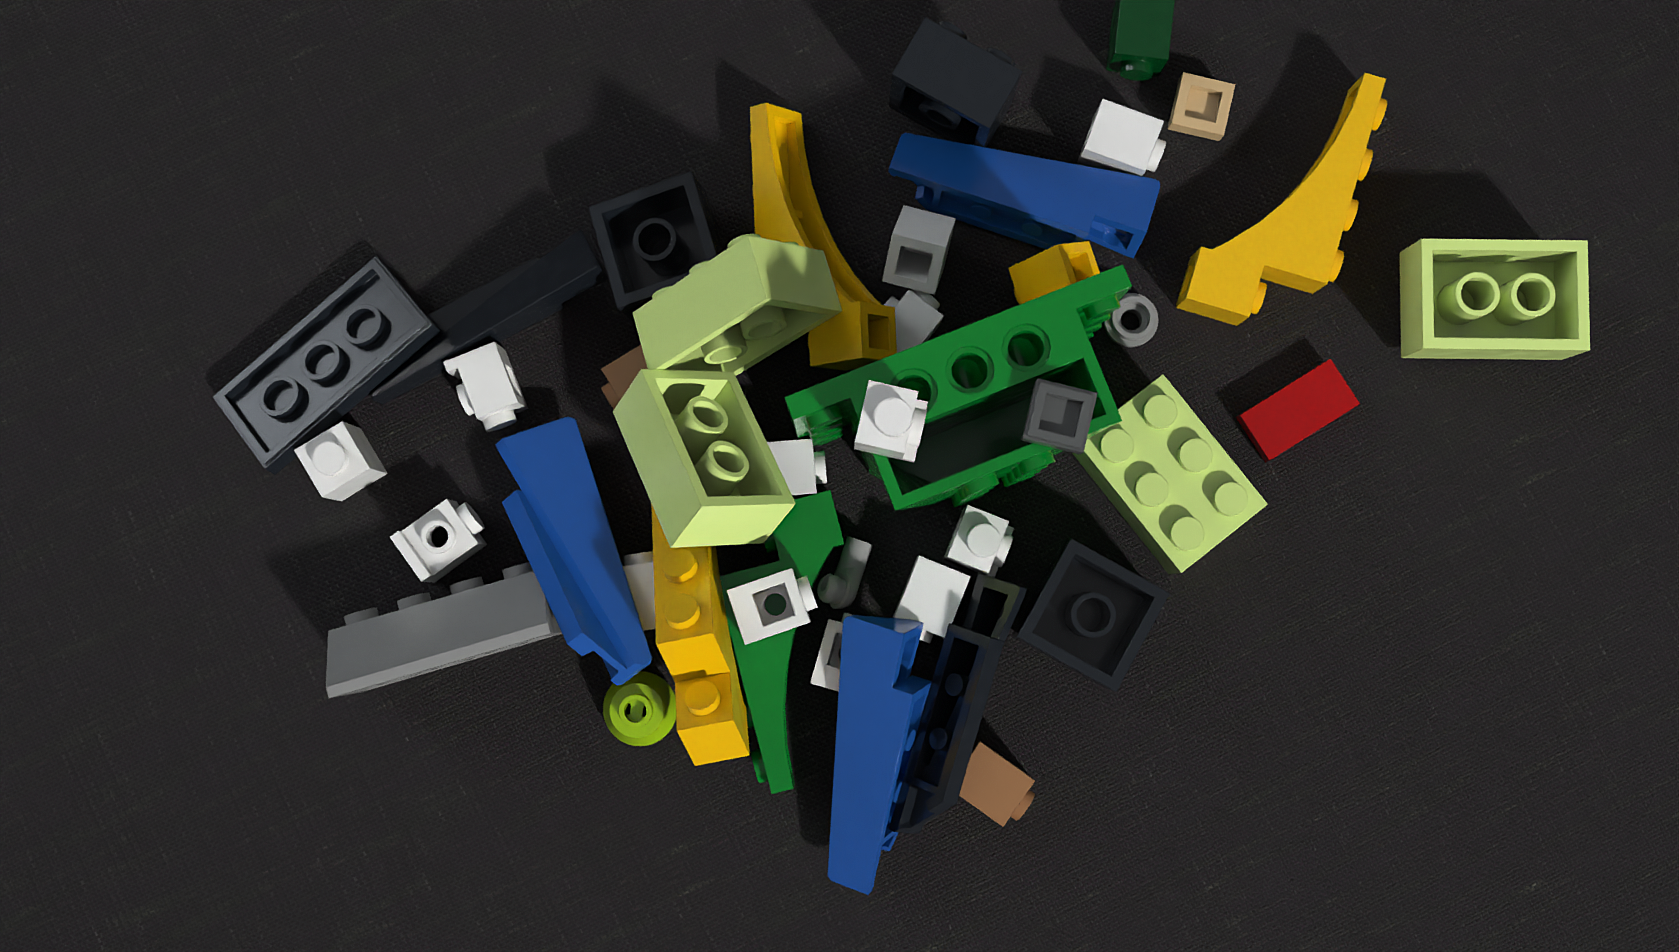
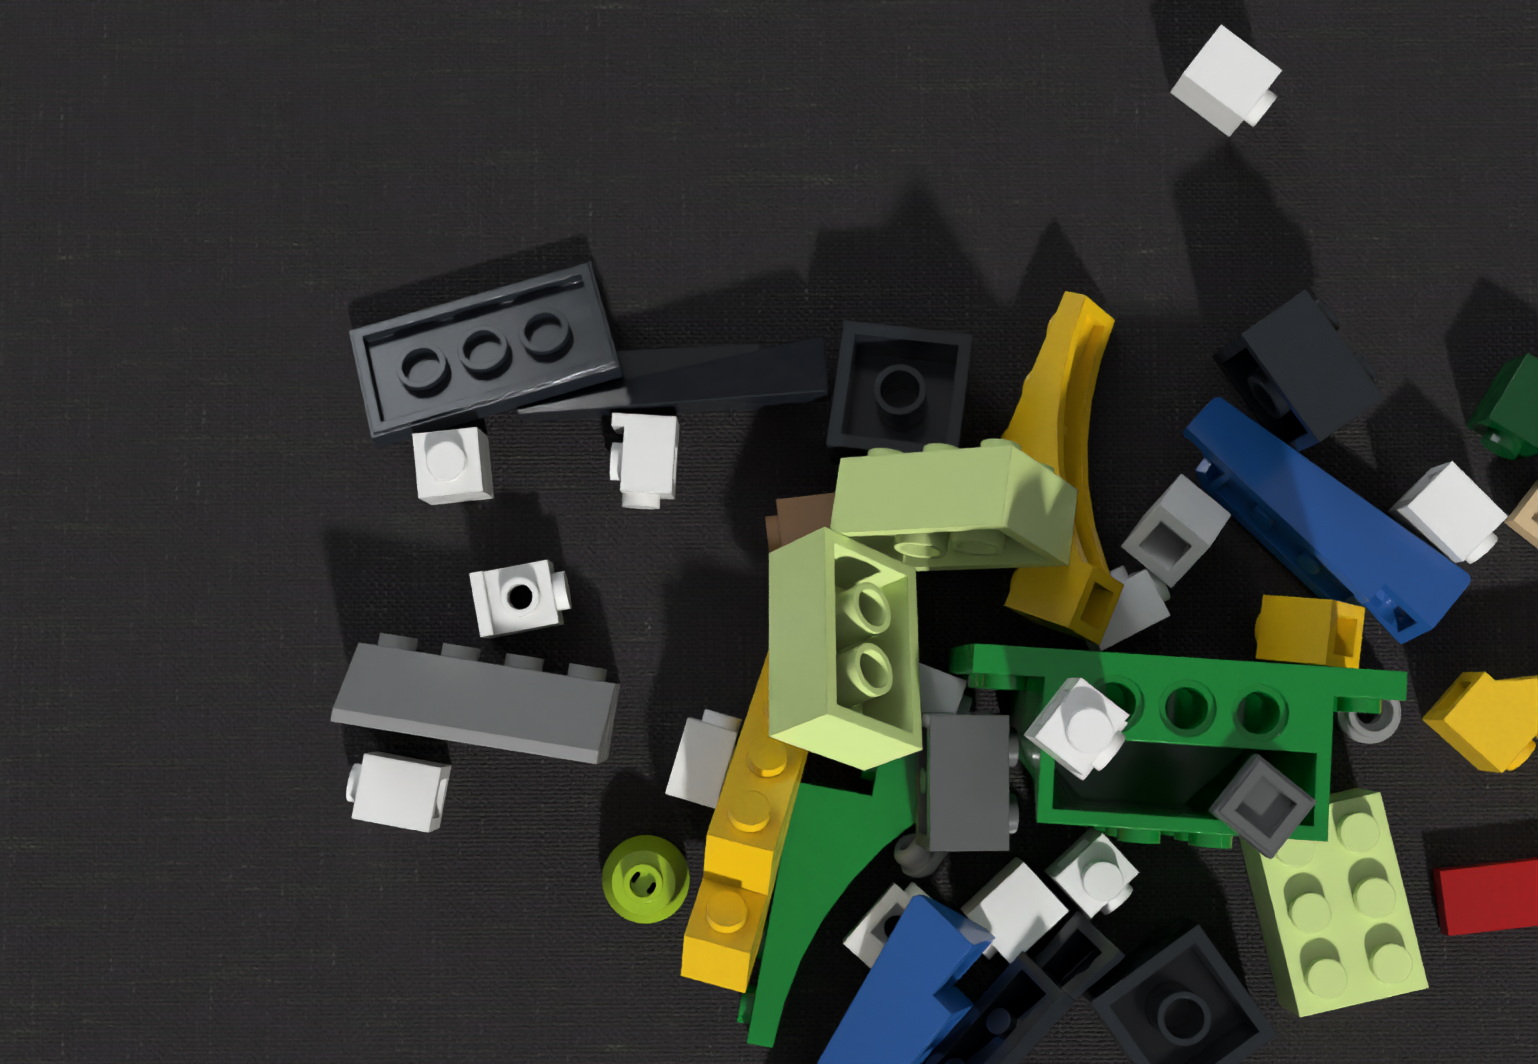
camera: 25 degrees right, 0 degrees up
(415, 731) = (398, 791): none -> white brick
(572, 546) = (659, 676): blue wedge -> none
(750, 609) = (820, 858): white brick -> none
(842, 512) = (965, 782): none -> dark grey brick

